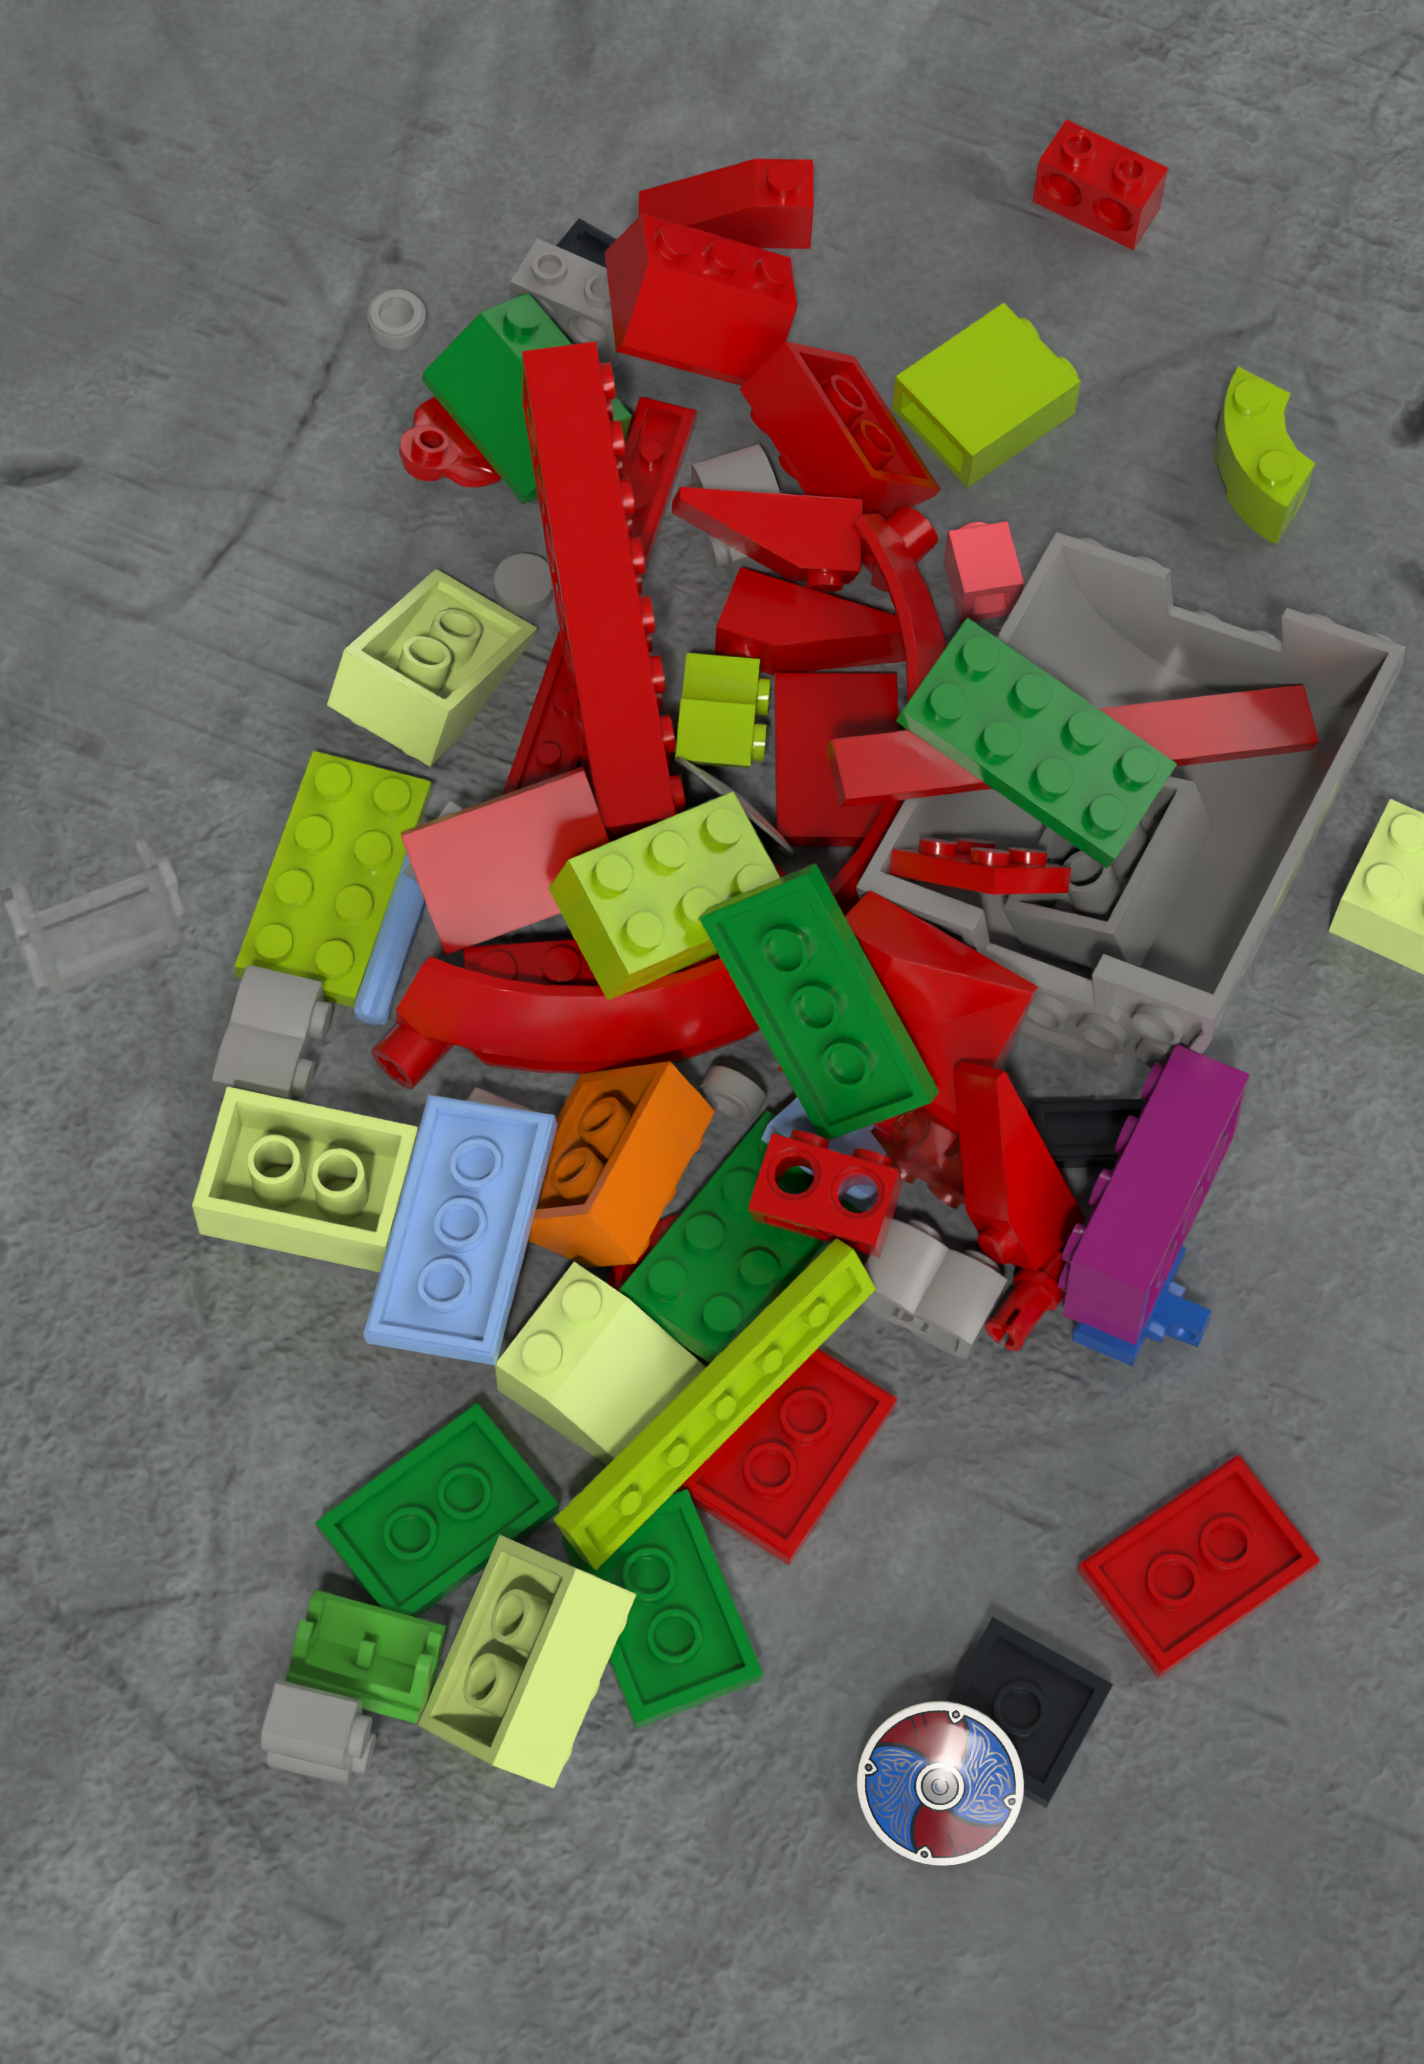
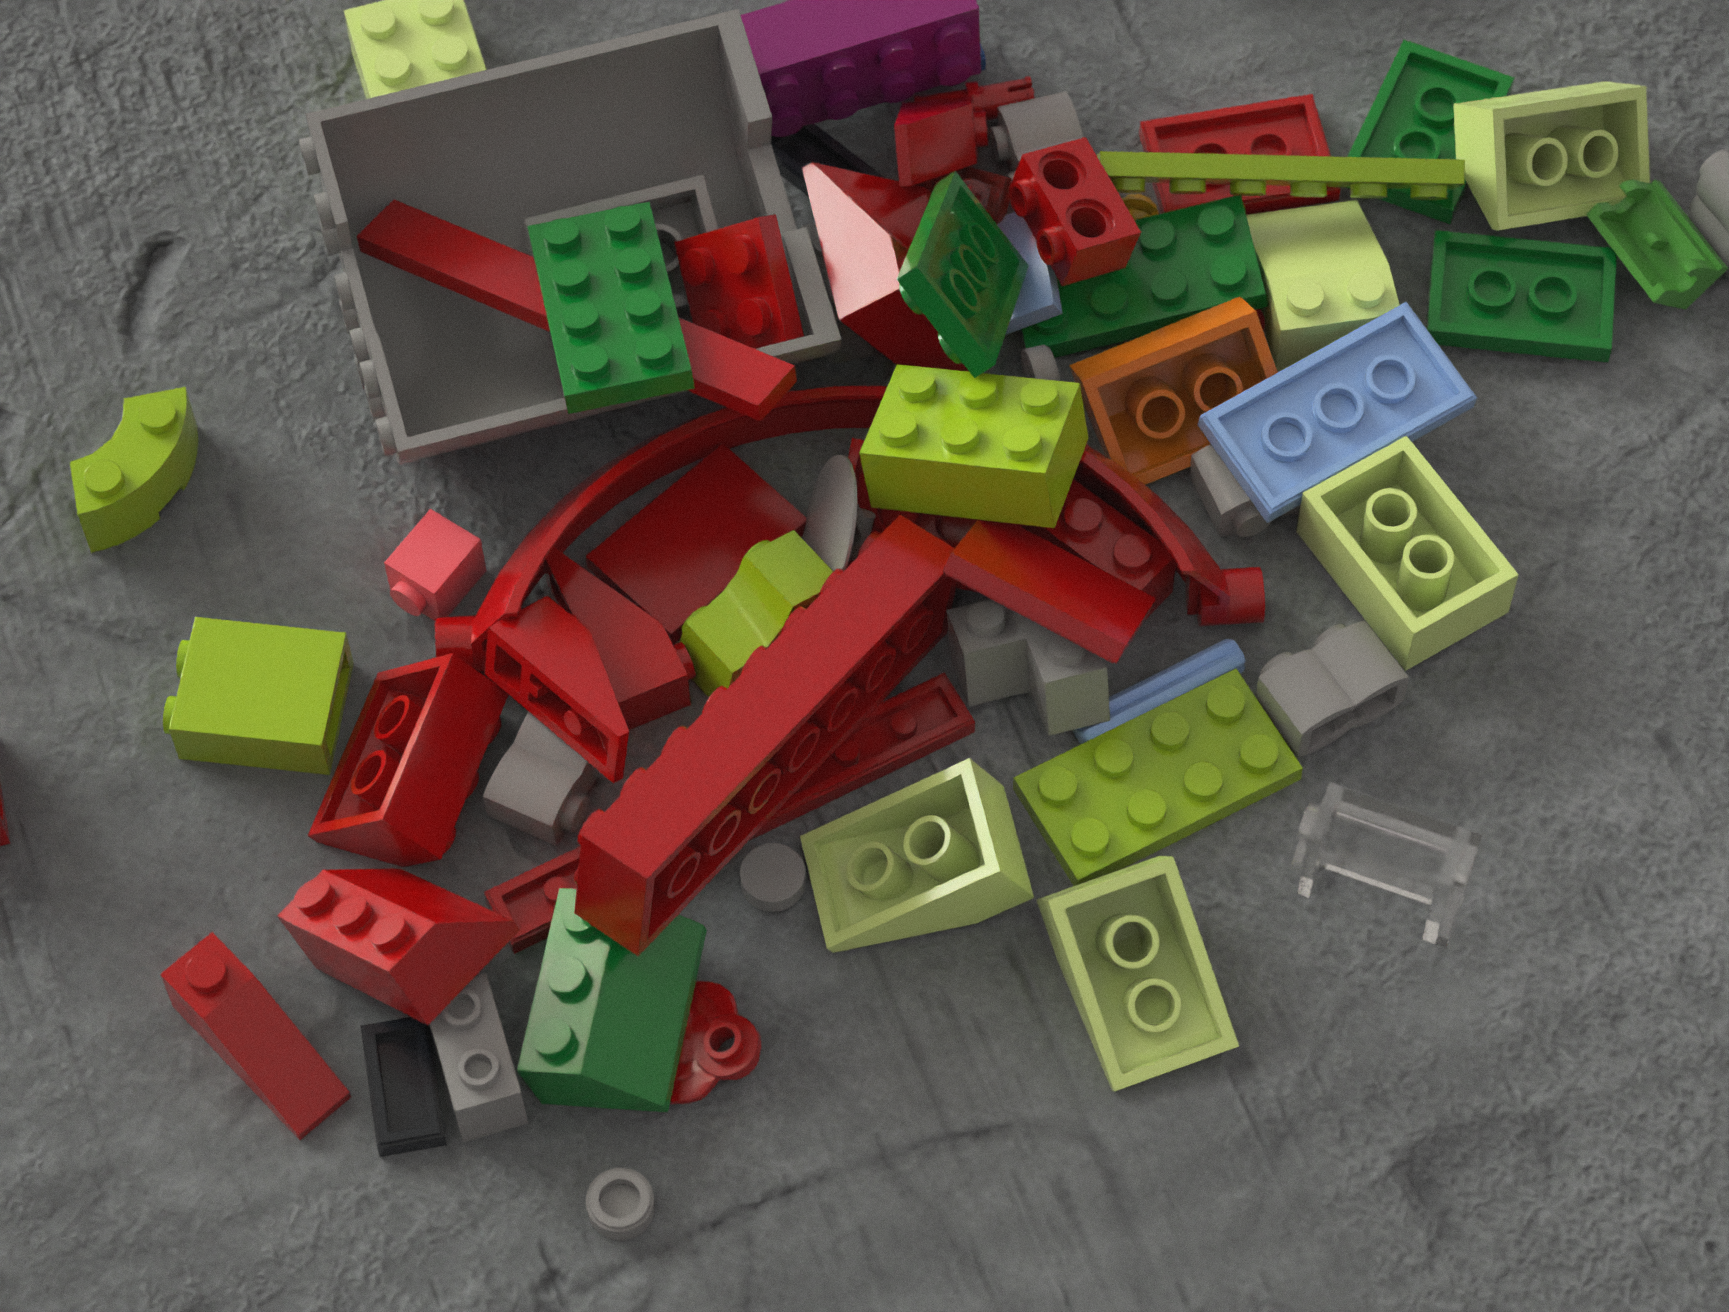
camera: 130 degrees left, 5 degrees down
(214, 723) = (1138, 971): none -> yellowish green slope

